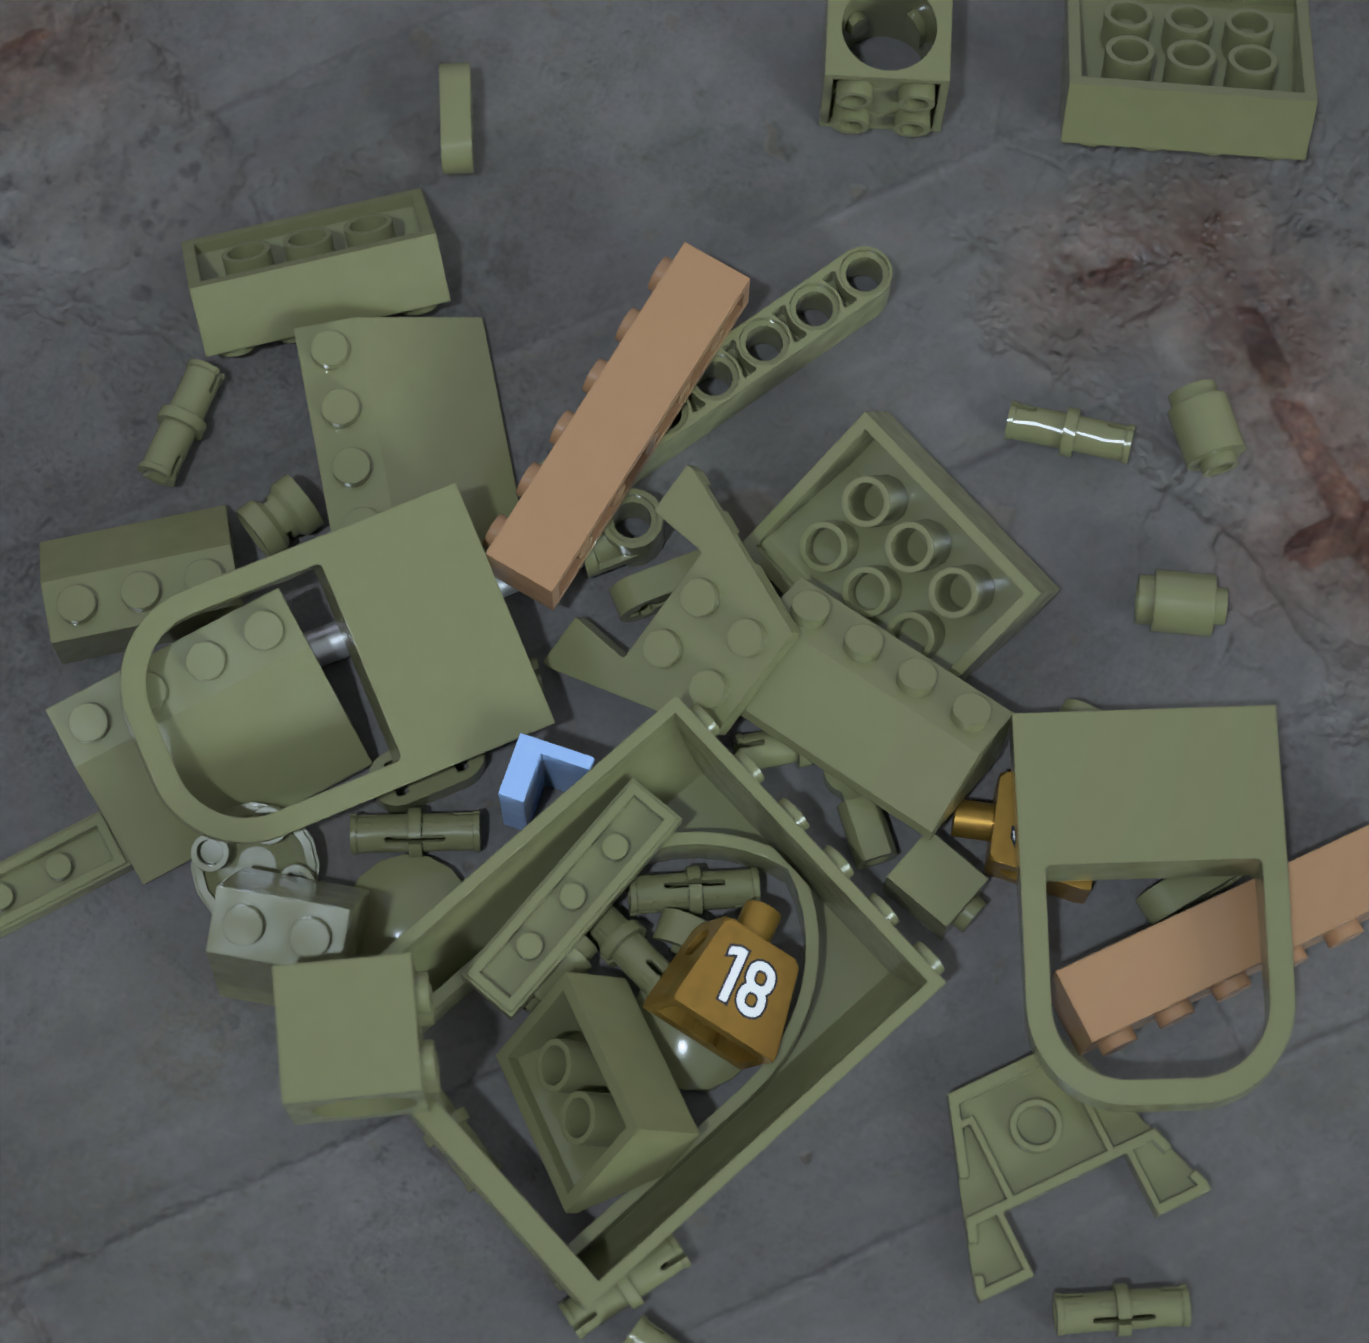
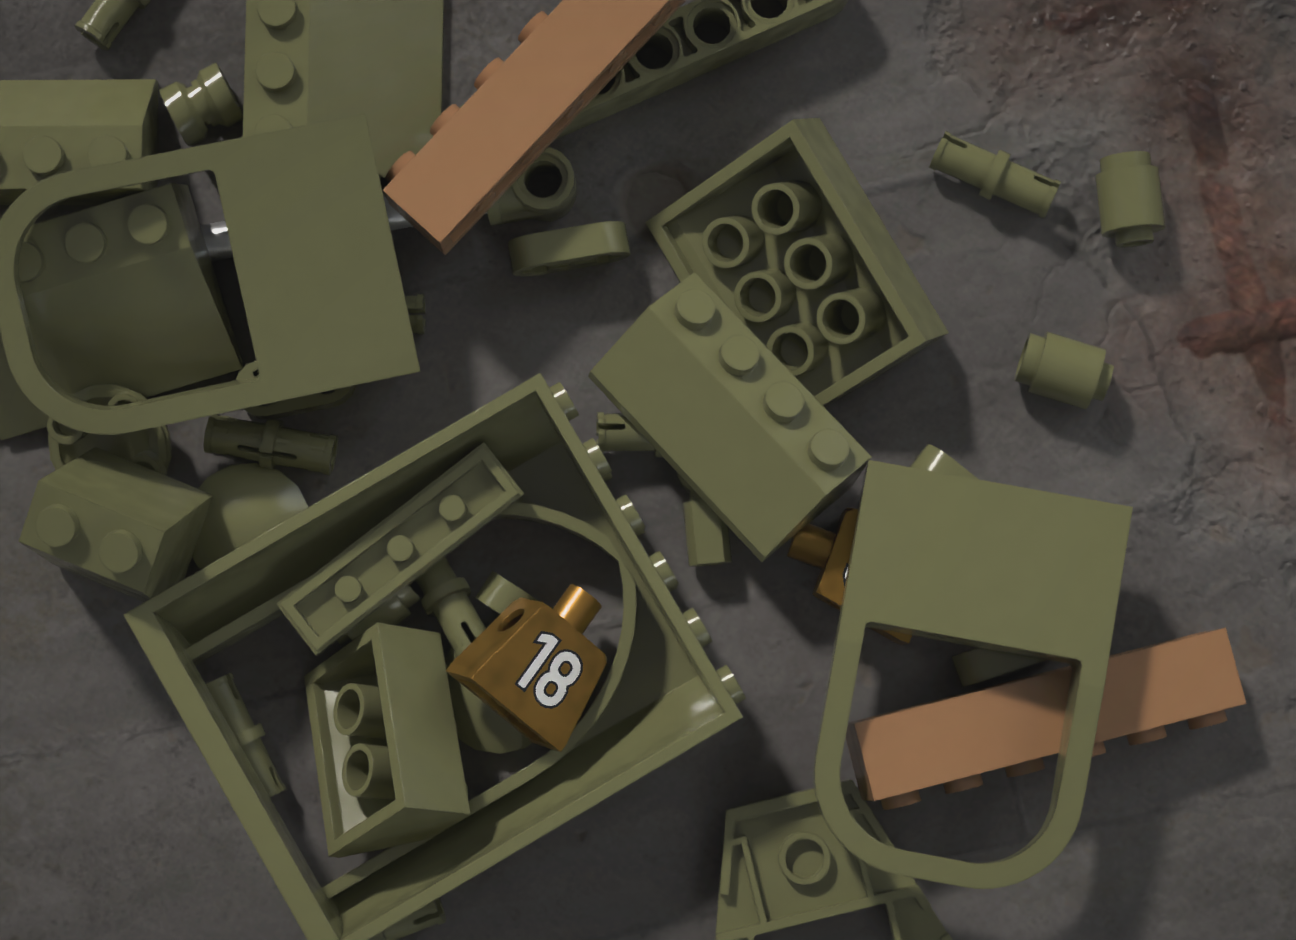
camera: 10 degrees right, 10 degrees up
(354, 1038) = (138, 665): olive brick -> none
(530, 769) = (385, 417): light blue panel -> none
(693, 890) = (527, 558): olive pin -> none
(711, 636) = (593, 314): olive wing -> none
(937, 886) = (763, 604): olive brick -> none

